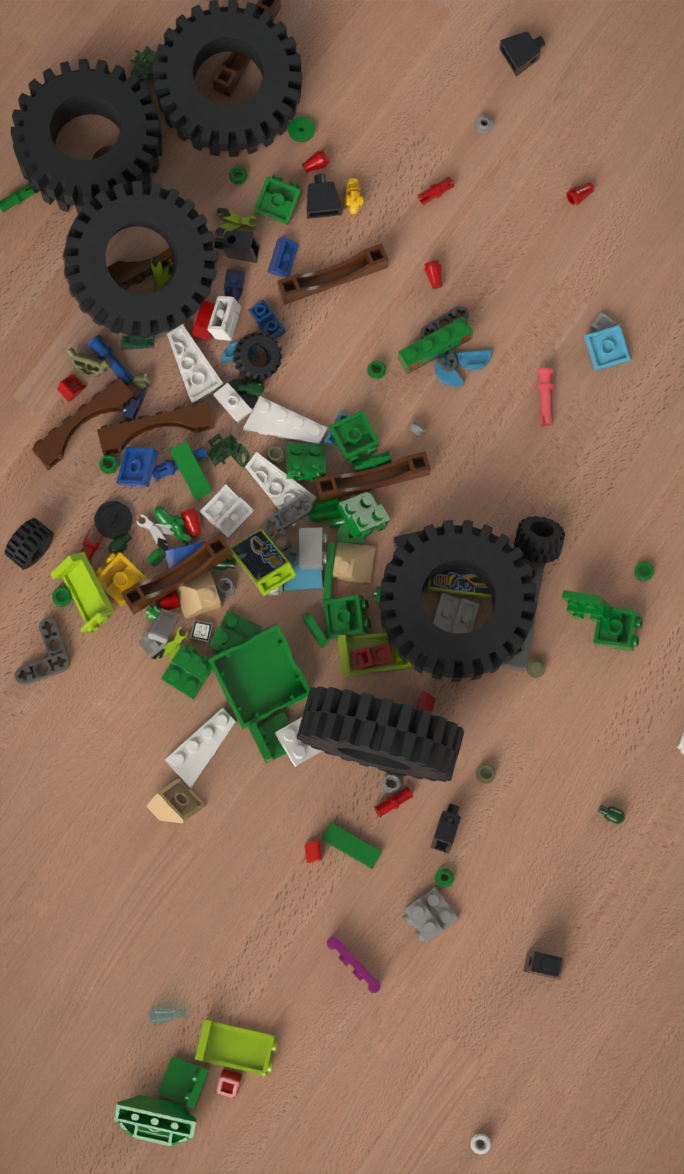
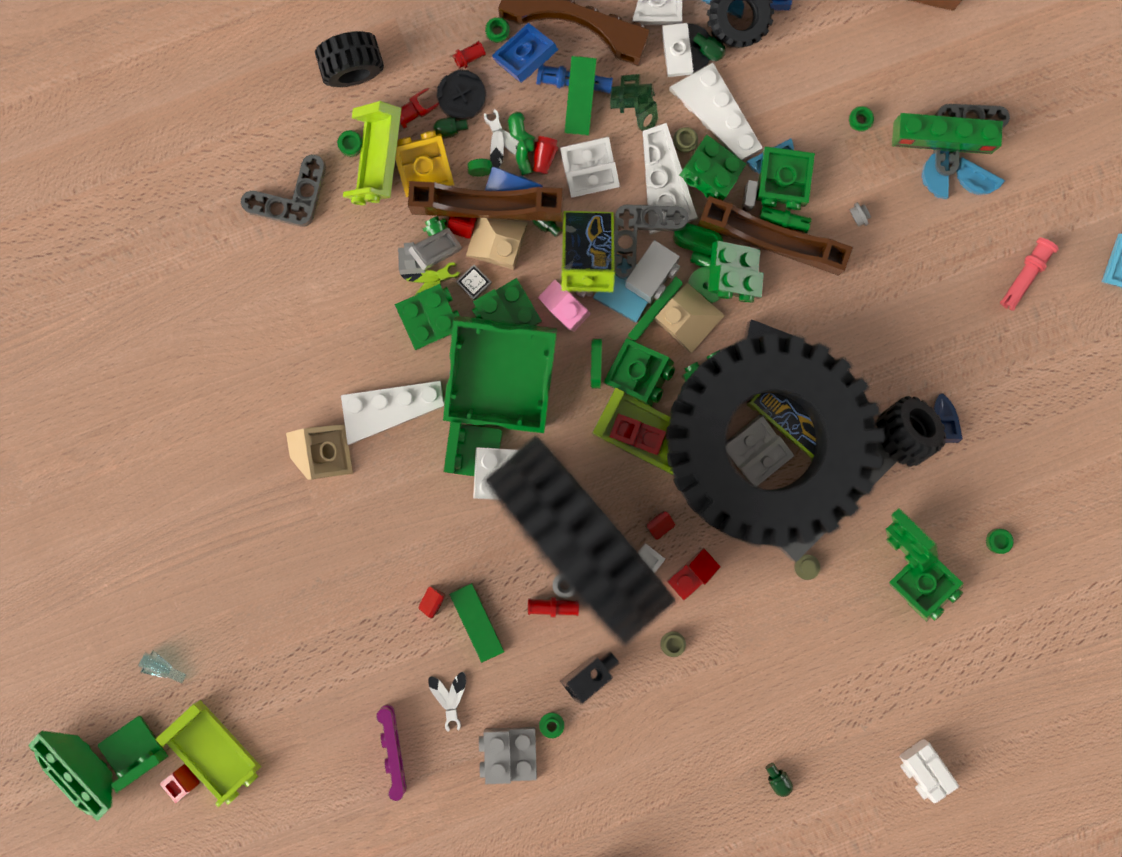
camera: 35 degrees right, 10 degrees up
(101, 491) = (469, 54): none -> red pin
(223, 581) = (532, 242): light grey plate -> none
(270, 606) = (564, 306): none -> bright pink slope
(339, 461) = (749, 195): none -> light grey tile
(367, 908) = (450, 699): none -> white piece
(434, 273) = (1000, 51): red cone -> none
(469, 719) = (694, 574): none -> red slope
(559, 516) = (949, 417): none -> dark blue plate

